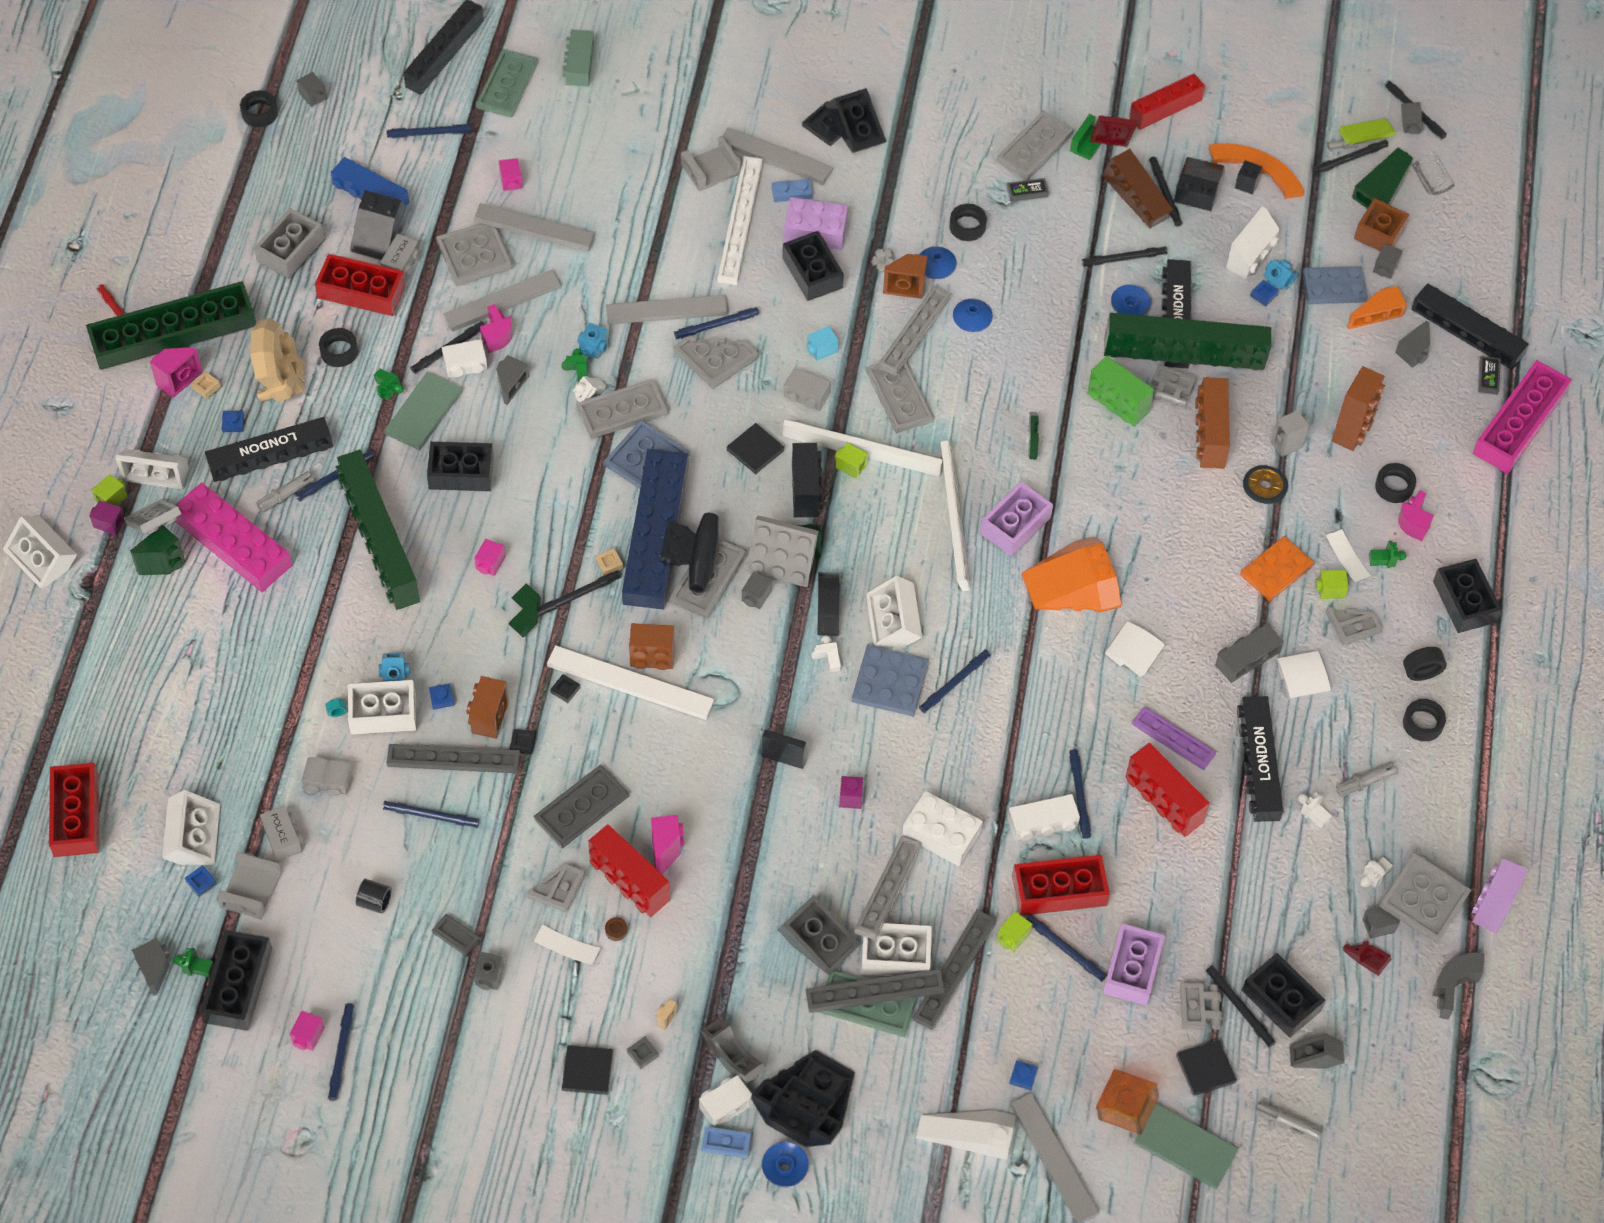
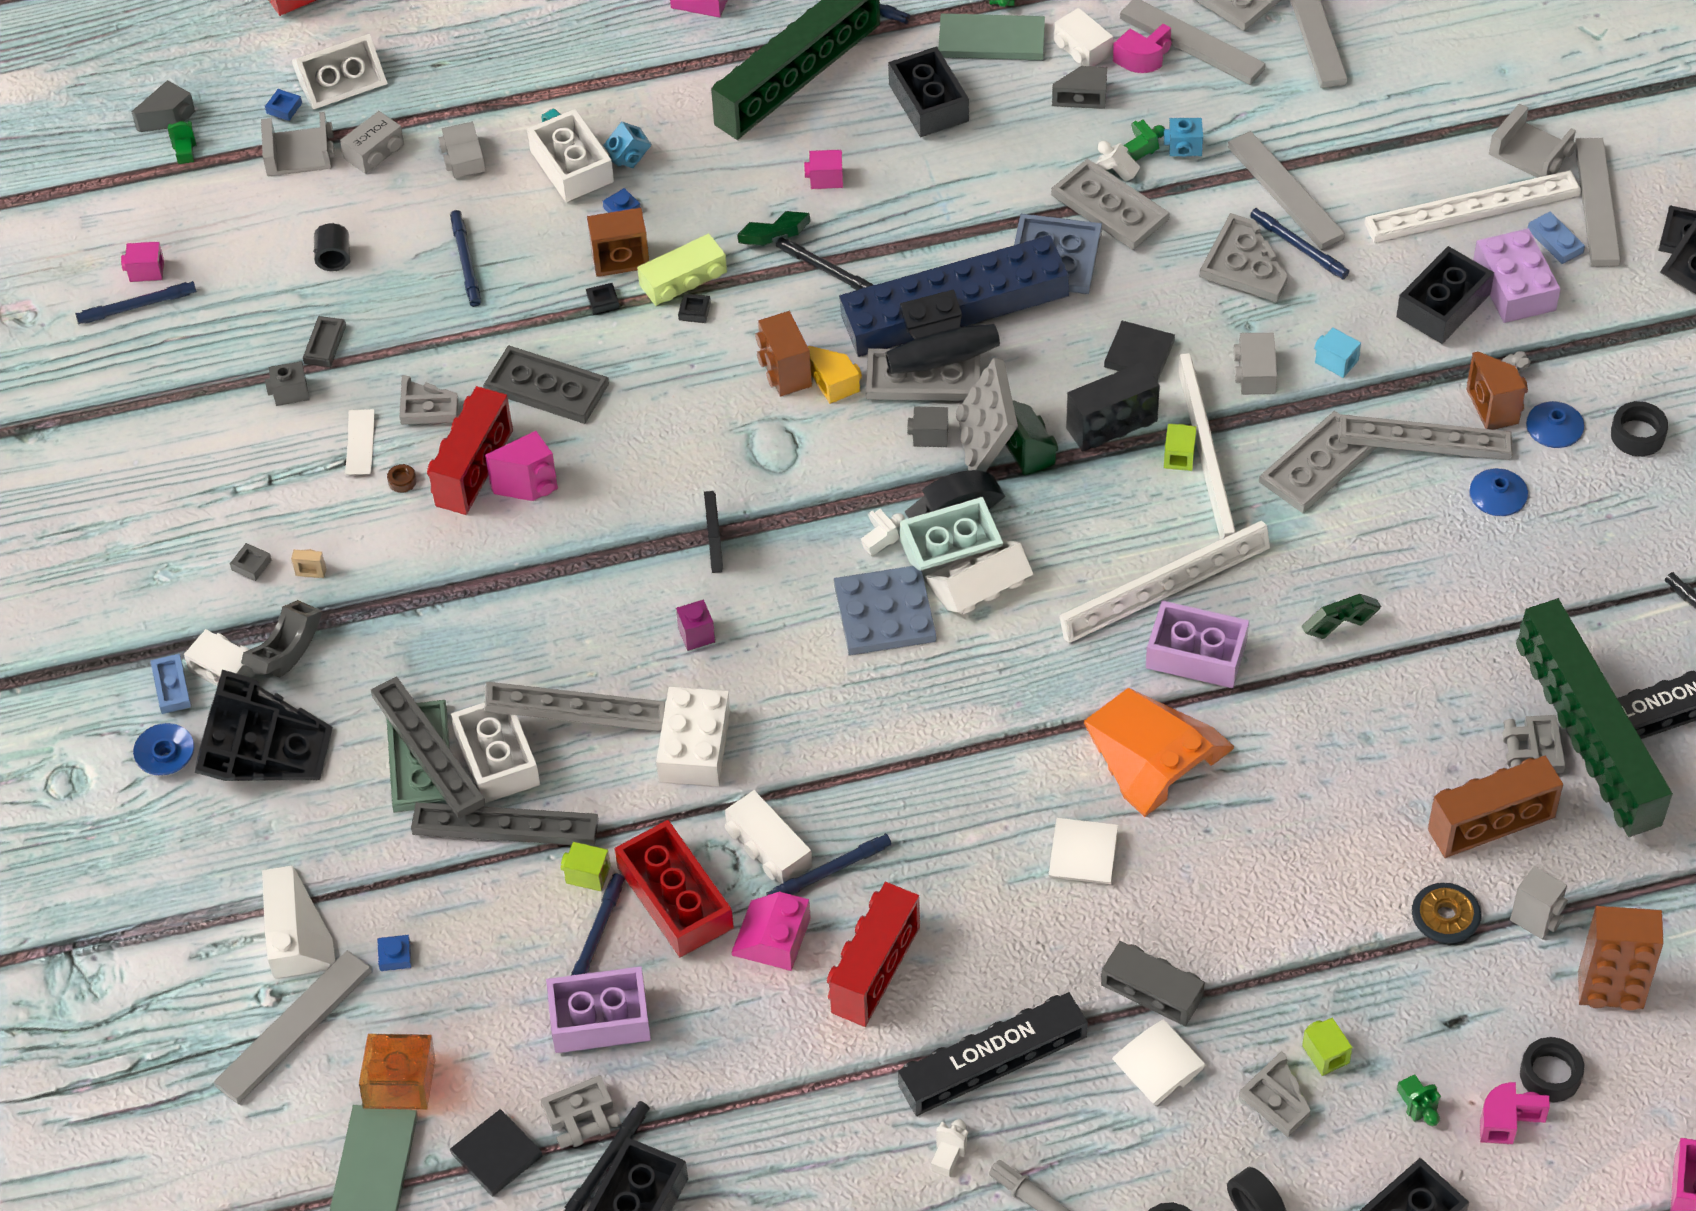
camera: 70 degrees right, 5 degrees down
(236, 980) = (173, 177): black brick -> none
(427, 360) = (1061, 11): black piece -> none
(453, 758) = (544, 246): dark grey plate -> none
(531, 680) = (682, 269): none -> yellowish green brick
(587, 1070) = (209, 522): black tile -> none
(609, 562) = (885, 272): tan plate -> none
(630, 682) = (735, 364): white tile -> none
(684, 625) = (834, 373): none -> yellow slope
(818, 935) = (479, 655): dark grey slope -> none
(863, 615) = (949, 534): none -> light aqua slope
(936, 697) = (886, 665): dark blue piece -> none
(1116, 841) = (773, 930): none -> dark pink slope
(1120, 391) = (1471, 682): bright green brick -> none
(1130, 300) = (1641, 639): blue dish -> none
(1174, 738) = (973, 946): medium lavender tile -> none
(1276, 568) = (1316, 974): orange plate -> none
(1347, 556) = (1393, 1054): white sticker -> none

